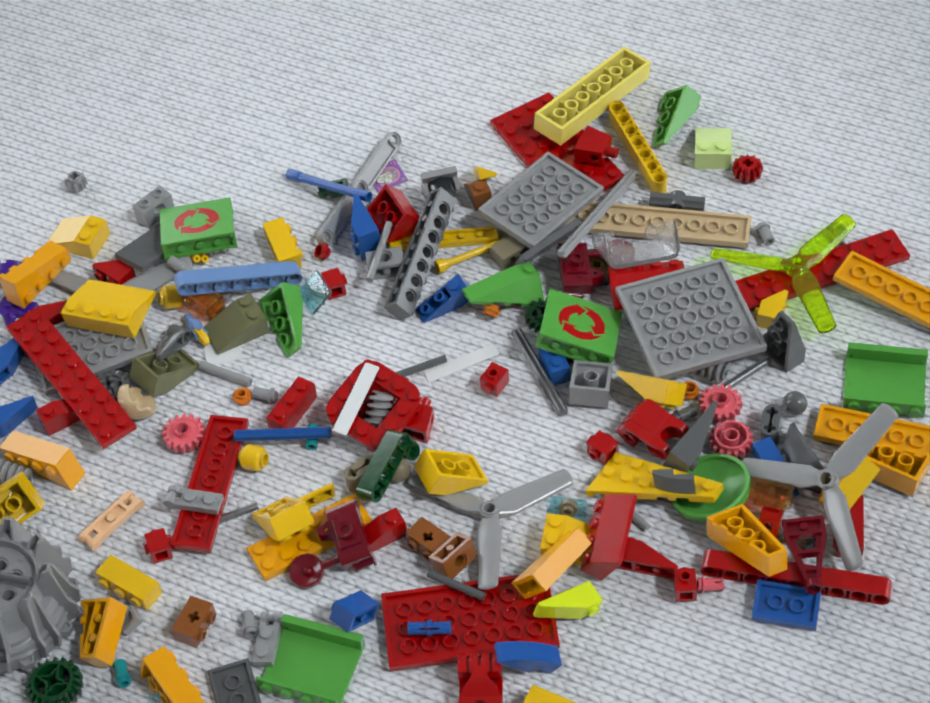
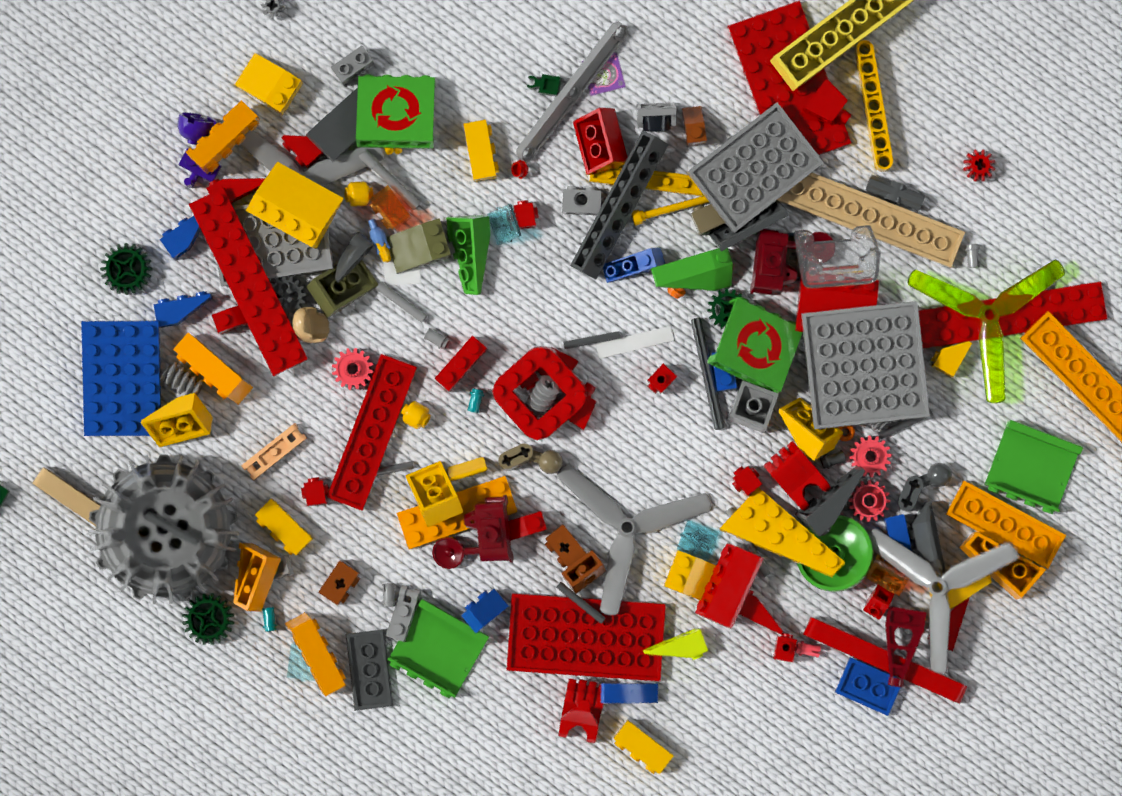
camera: 10 degrees right, 35 degrees up
(193, 500) = (354, 455): light grey plate -> none
(236, 278) = (429, 196): medium blue beam -> none
(242, 400) = (414, 341): orange plate -> none
(283, 434) = (447, 398): blue axle -> none
(325, 184) = (508, 56): piece -> none
(355, 399) = (523, 386): white sticker -> none
(364, 230) = (565, 164): blue slope -> none
(379, 250) = (577, 194): light grey bar -> none
(384, 464) = (538, 463): dark green beam -> none
(414, 628) = (548, 643): blue pin -> none
(449, 472) = (598, 478): yellow slope -> none
(481, 173) = (705, 108): yellow slope -> none
(552, 564) = (670, 611): light orange slope -> none
(568, 507) = (699, 542): dark tan plate -> none
(596, 214) = (809, 199): light grey axle -> none
(675, 110) = (926, 67): bright green wedge -> none
(675, 483) = (795, 549): dark grey slope -> none
(713, 148) = (953, 122): yellowish green slope -> none
(748, 539) = (849, 619): light orange wedge -> none
(784, 343) = (948, 410): dark grey wedge -> none

